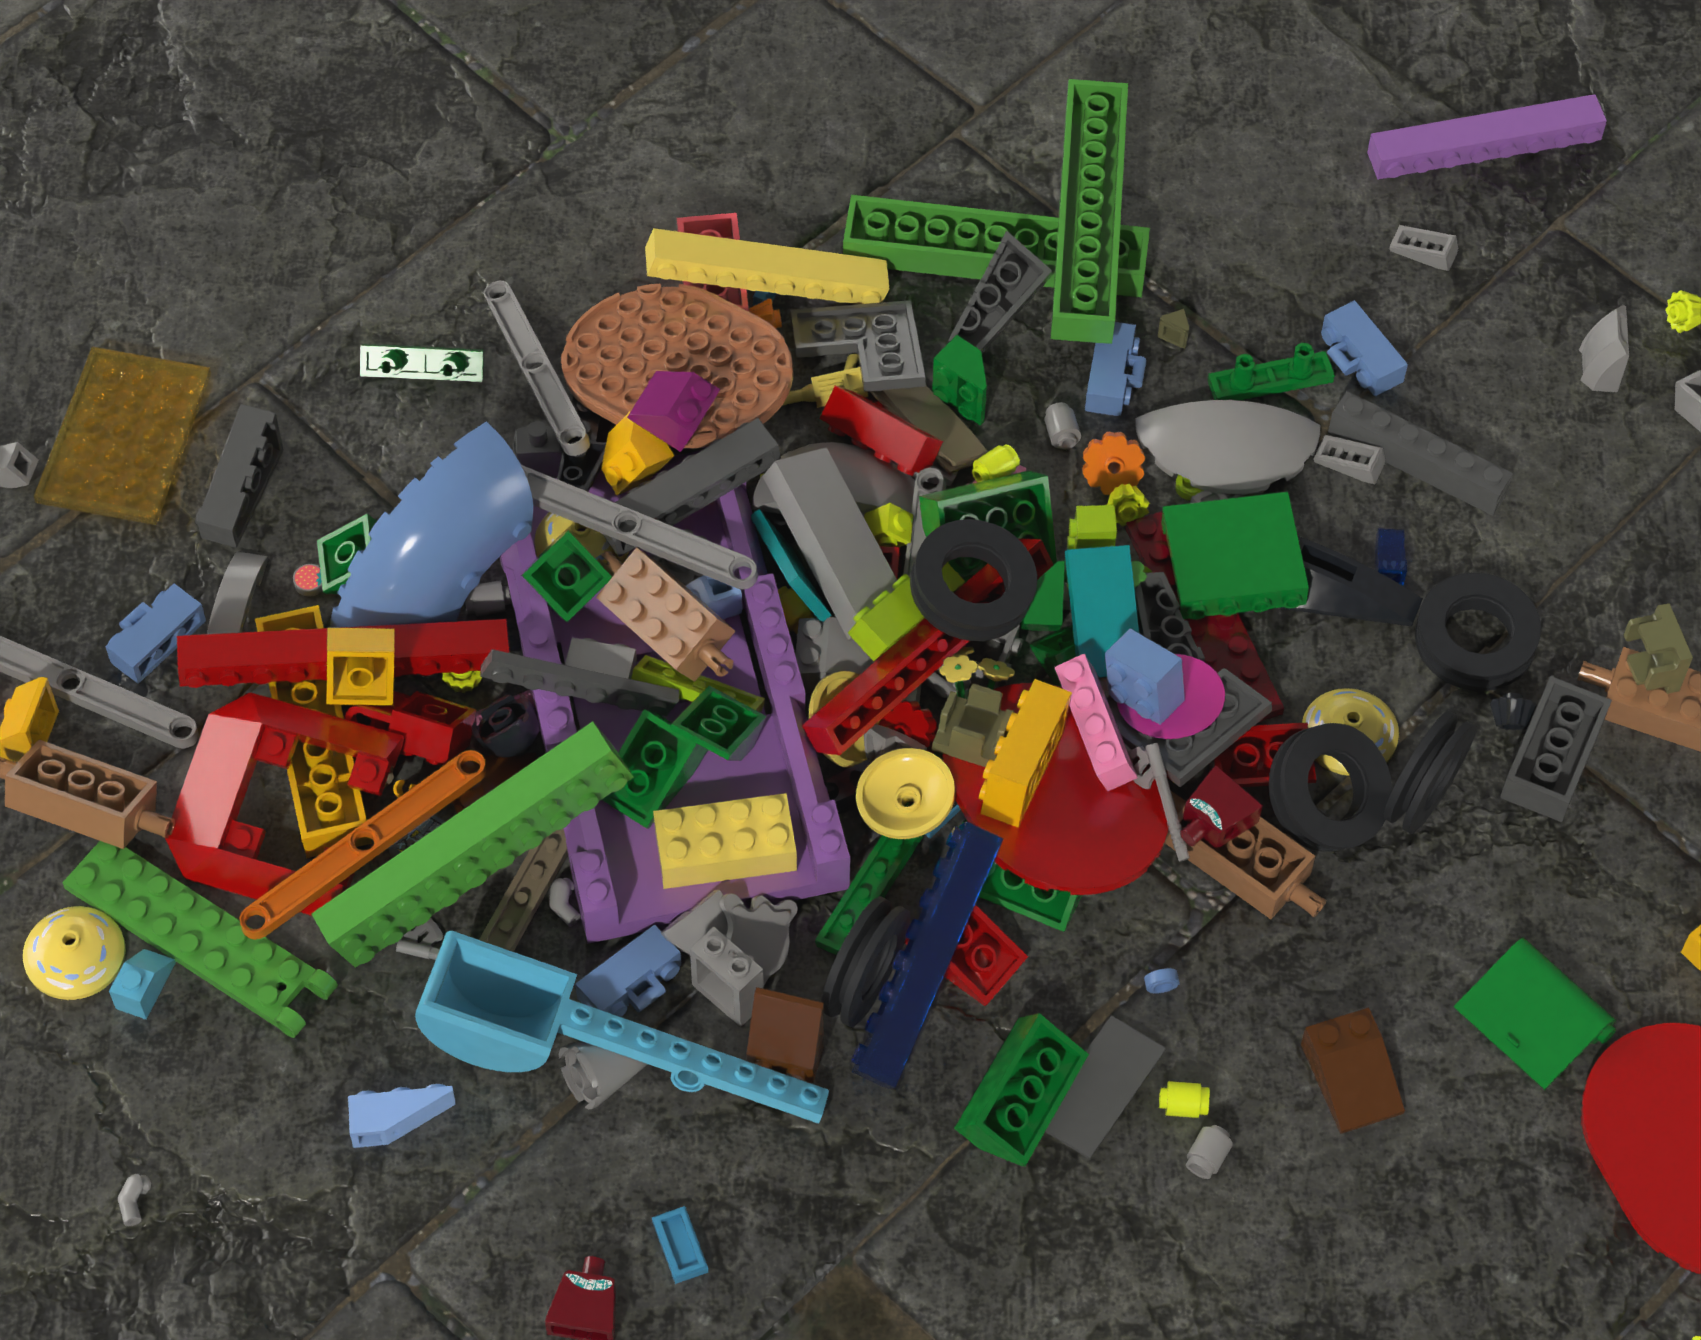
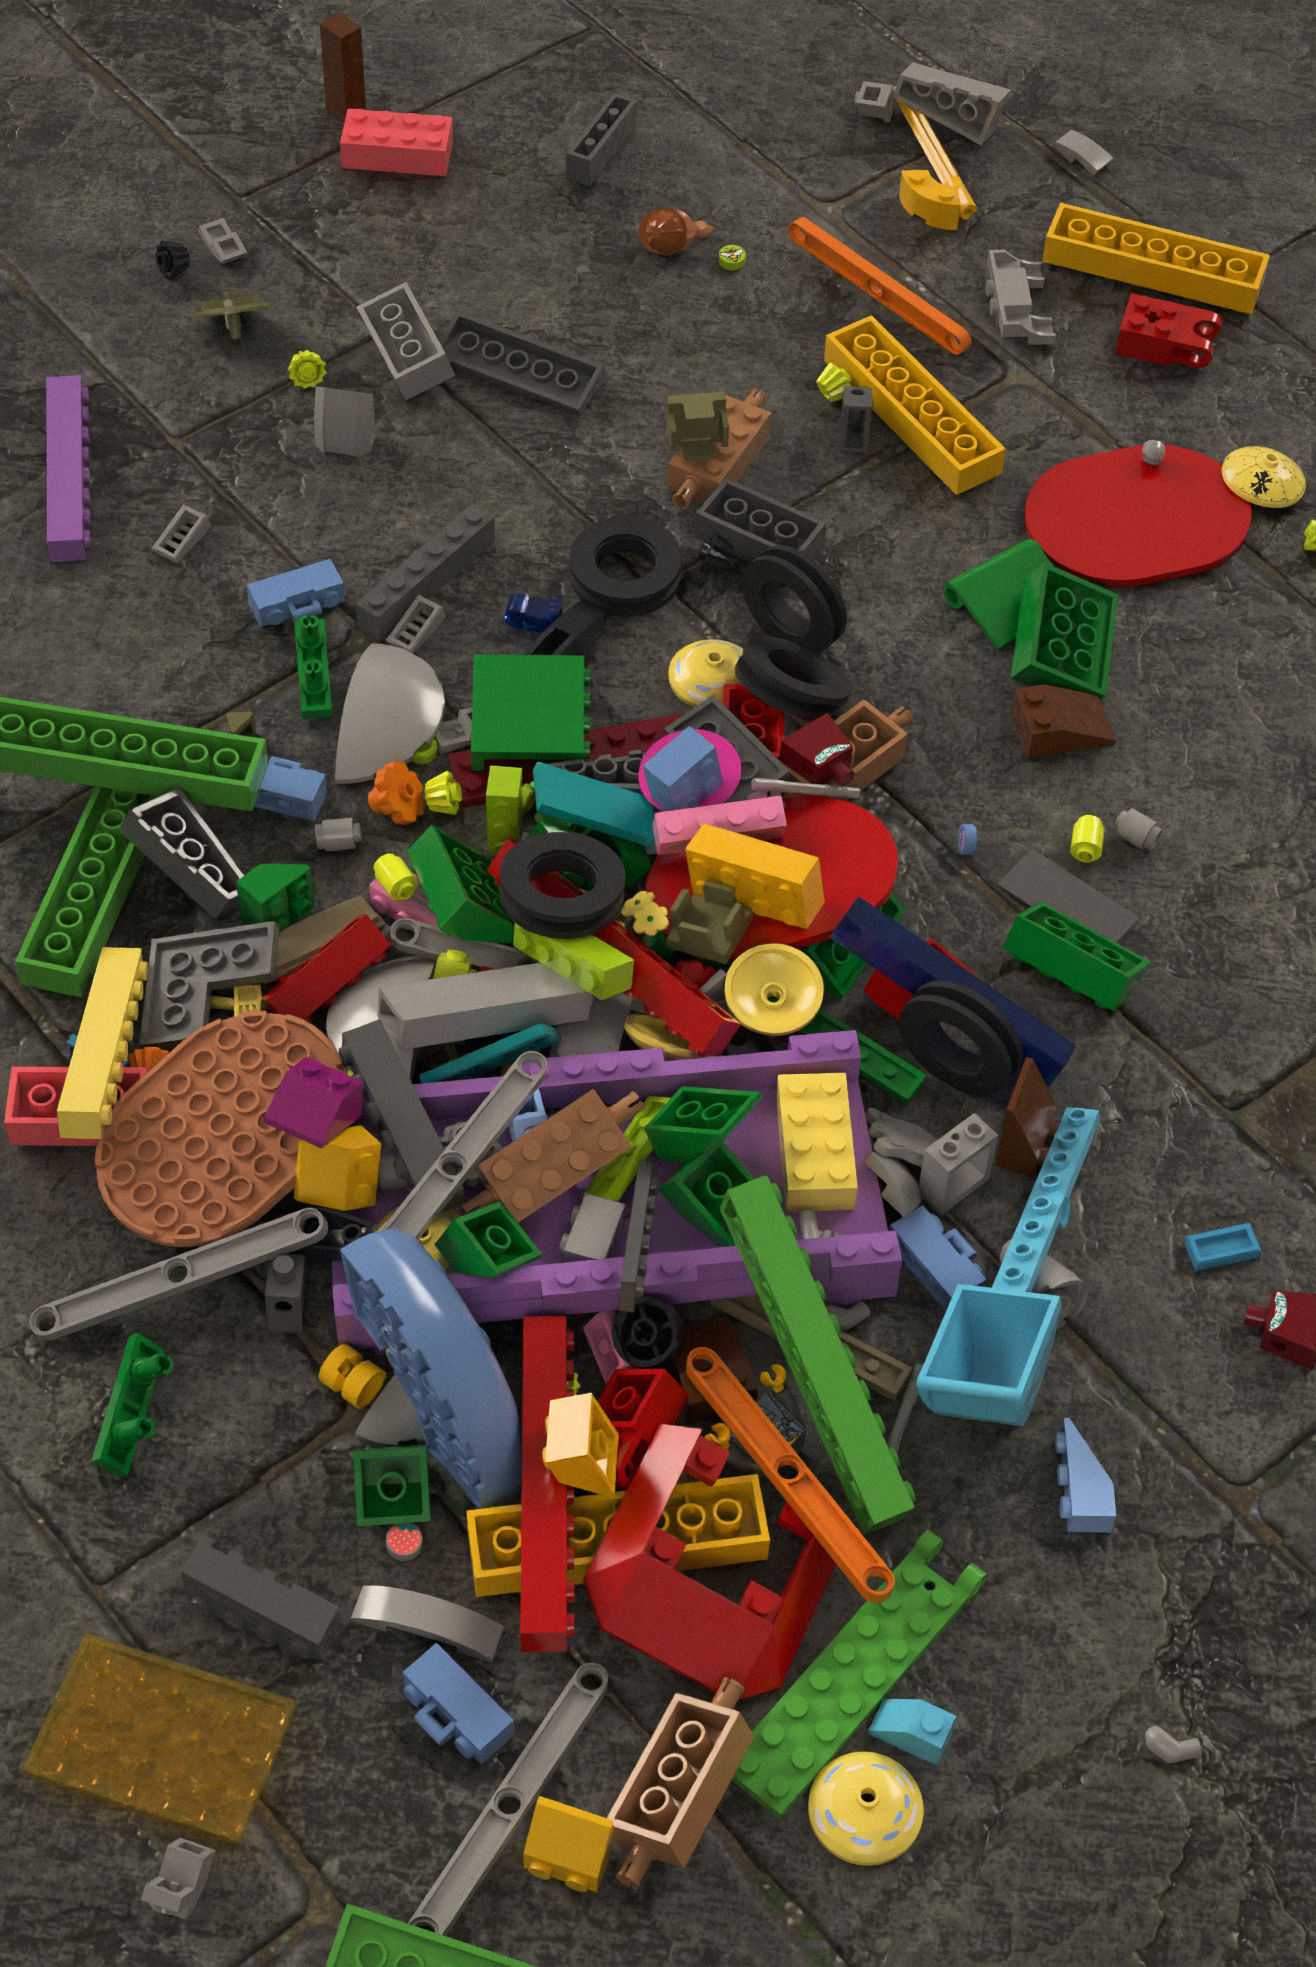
camera: 85 degrees left, 5 degrees down
(624, 852) = (809, 1226): none -> light grey arm
(1474, 1066) = (1064, 632): none -> green slope

